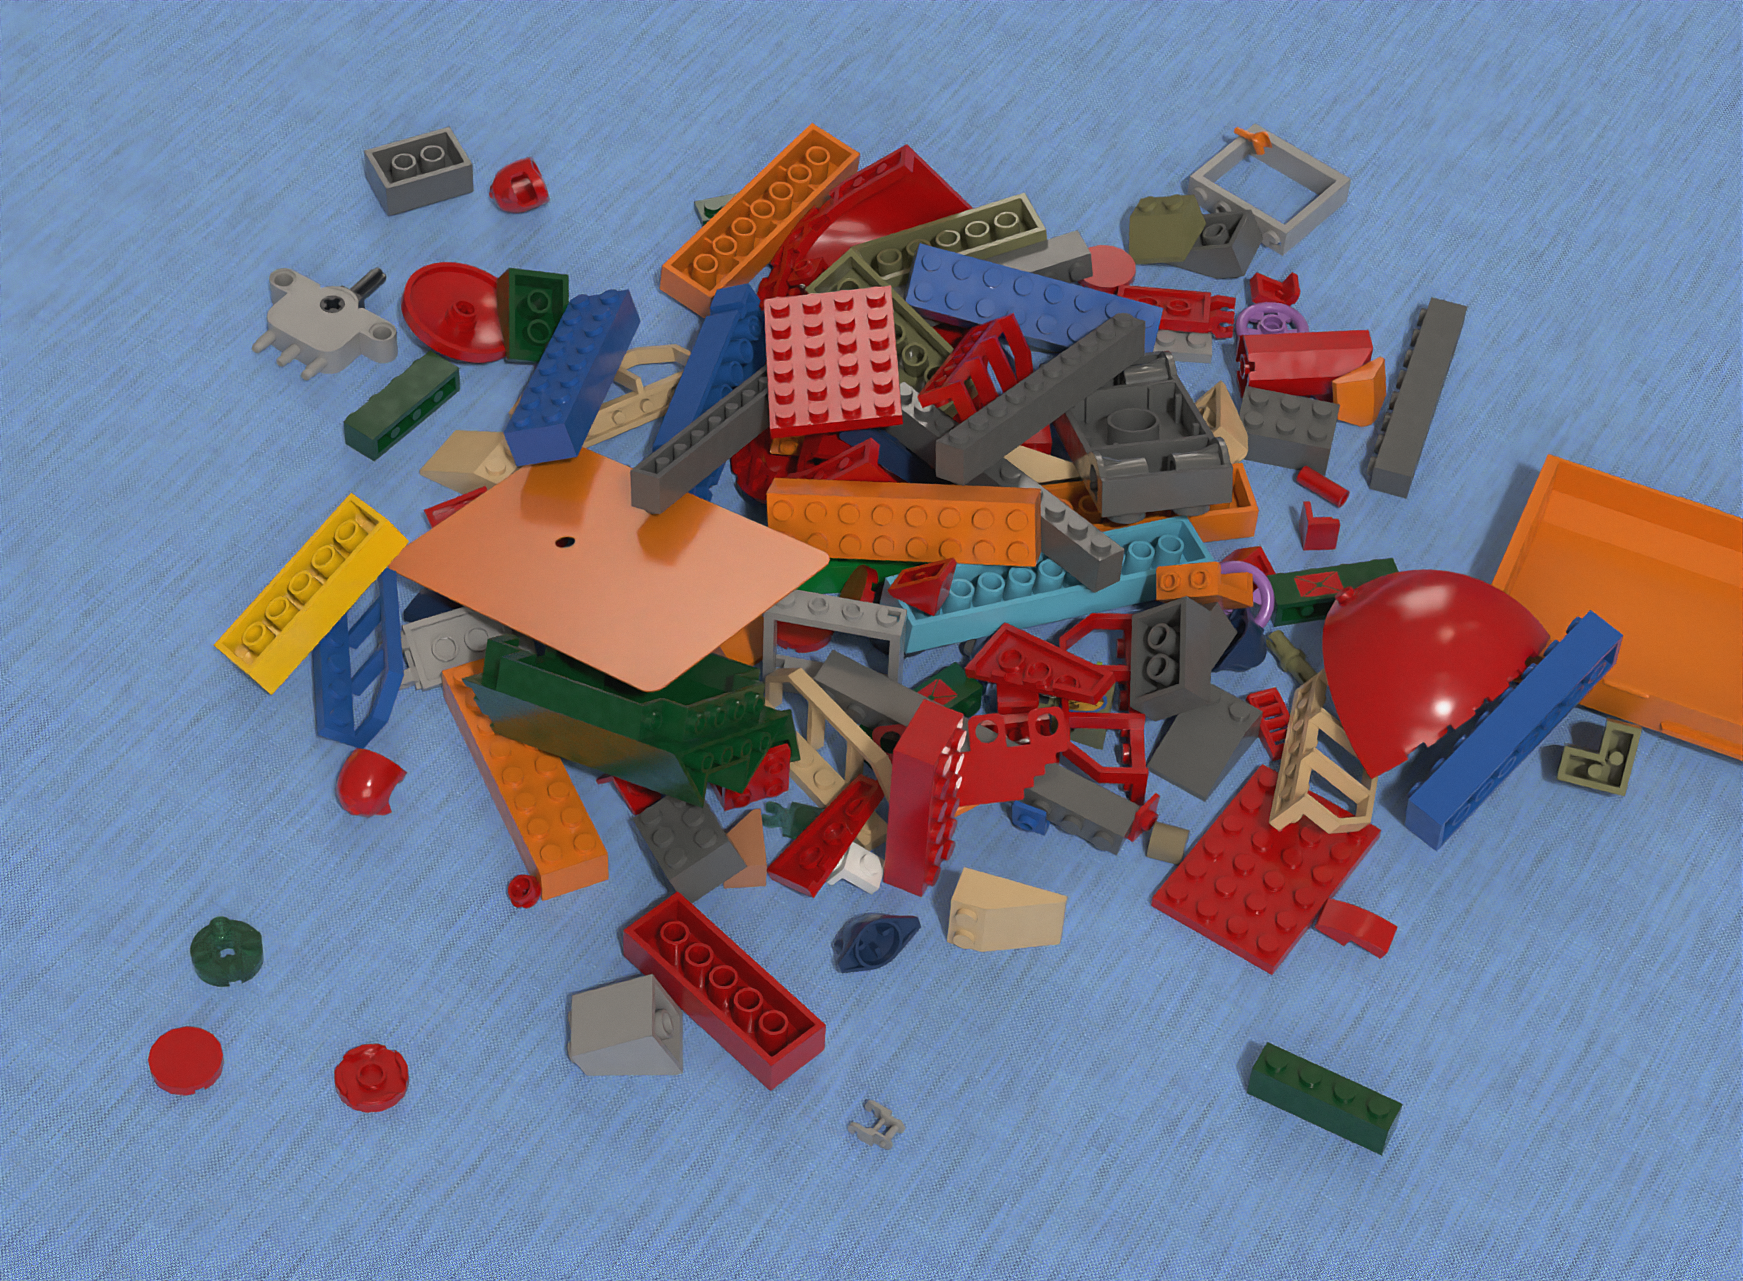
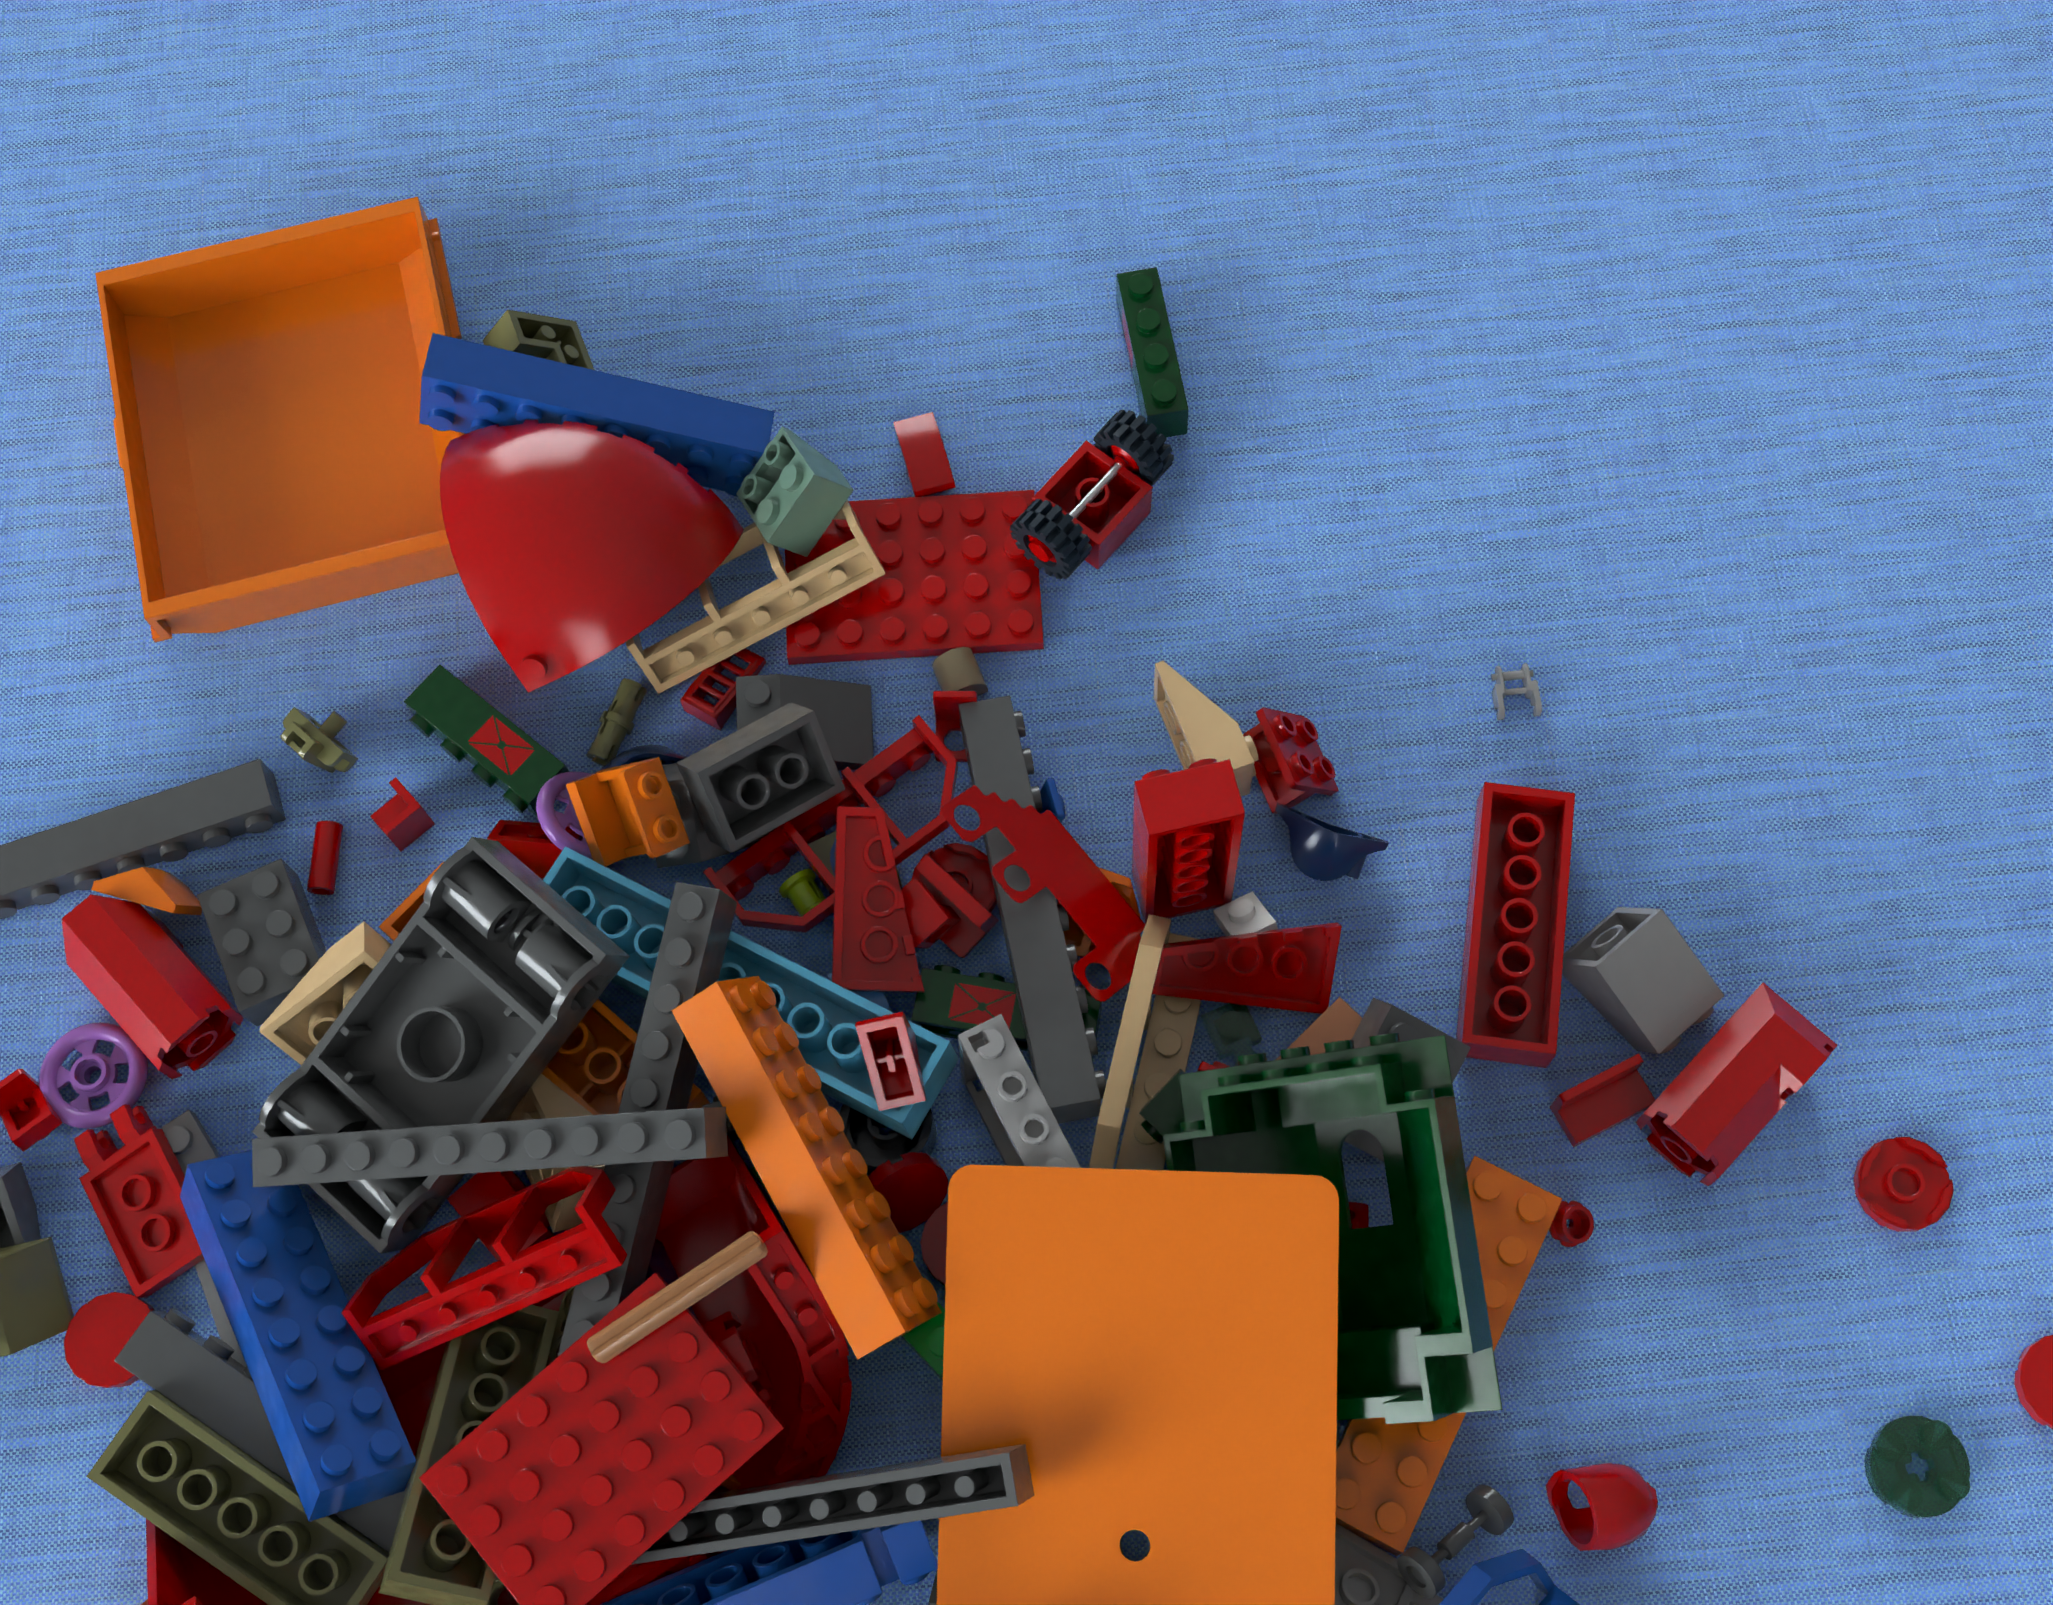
camera: 120 degrees left, 20 degrees up
(424, 672) = (1422, 1570): none -> dark grey wheel
(514, 1013) = (1735, 1085): none -> red brick
(574, 963) = (1602, 1101): none -> red panel
(876, 404) = (677, 1297): none -> medium nougat axle
(945, 960) = (1289, 759): none -> red bracket
(1228, 969) = (1094, 497): none -> brick
(1363, 795) = (793, 493): none -> sand green slope
(1406, 514) = (317, 742): none -> olive piece

